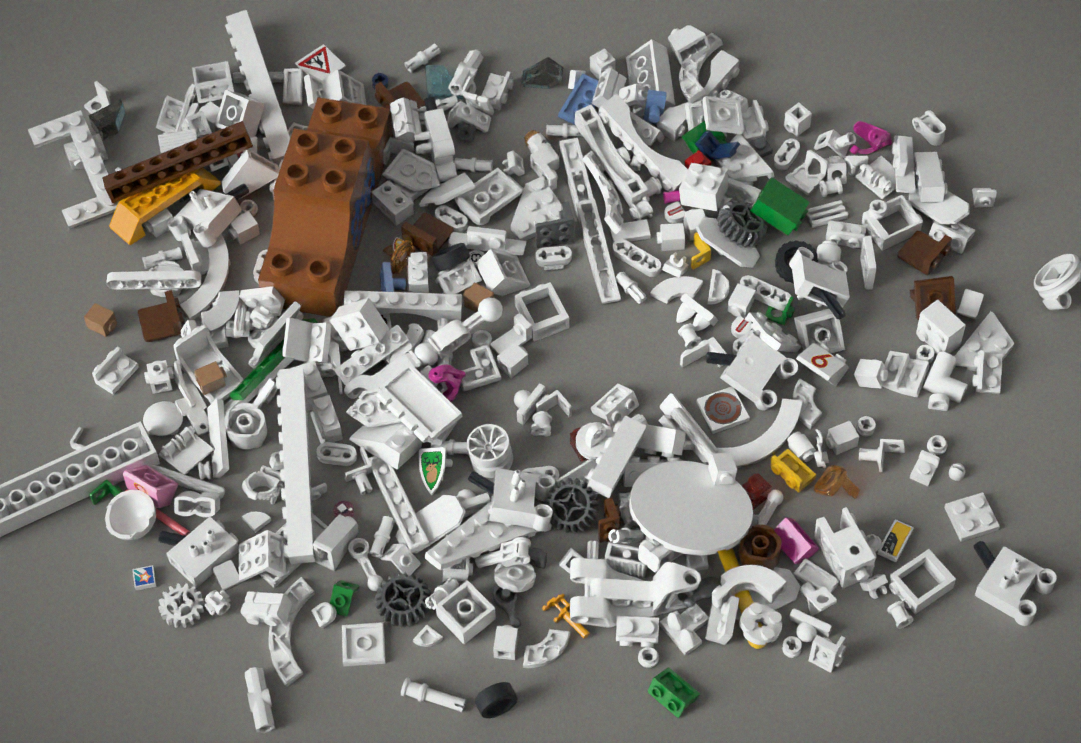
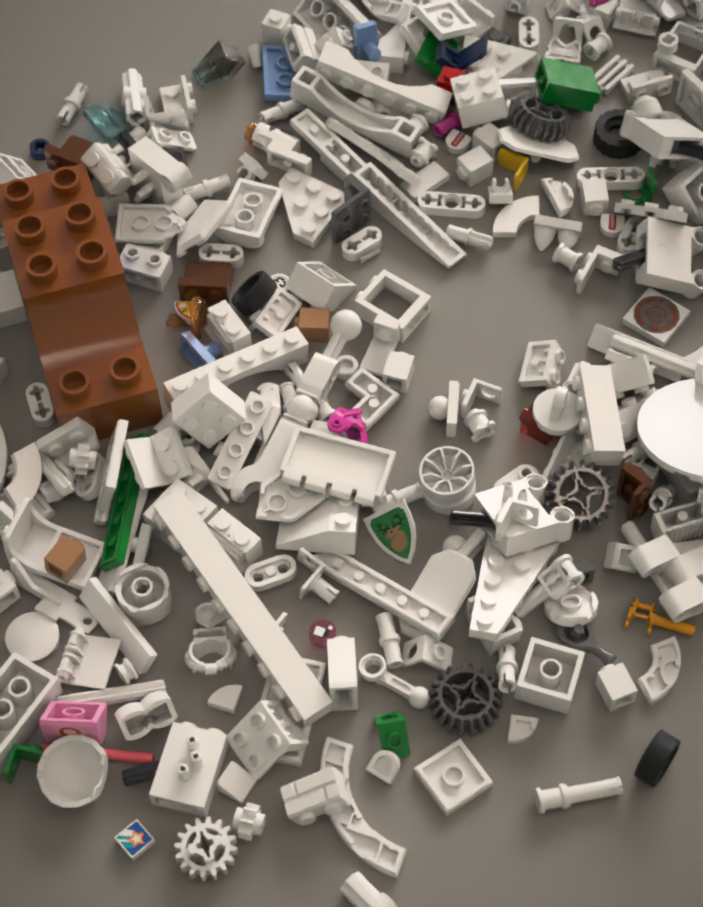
camera: 30 degrees left, 0 degrees up
(486, 239) = (281, 257): white bracket -> none
(501, 491) = (511, 513): none -> white bracket

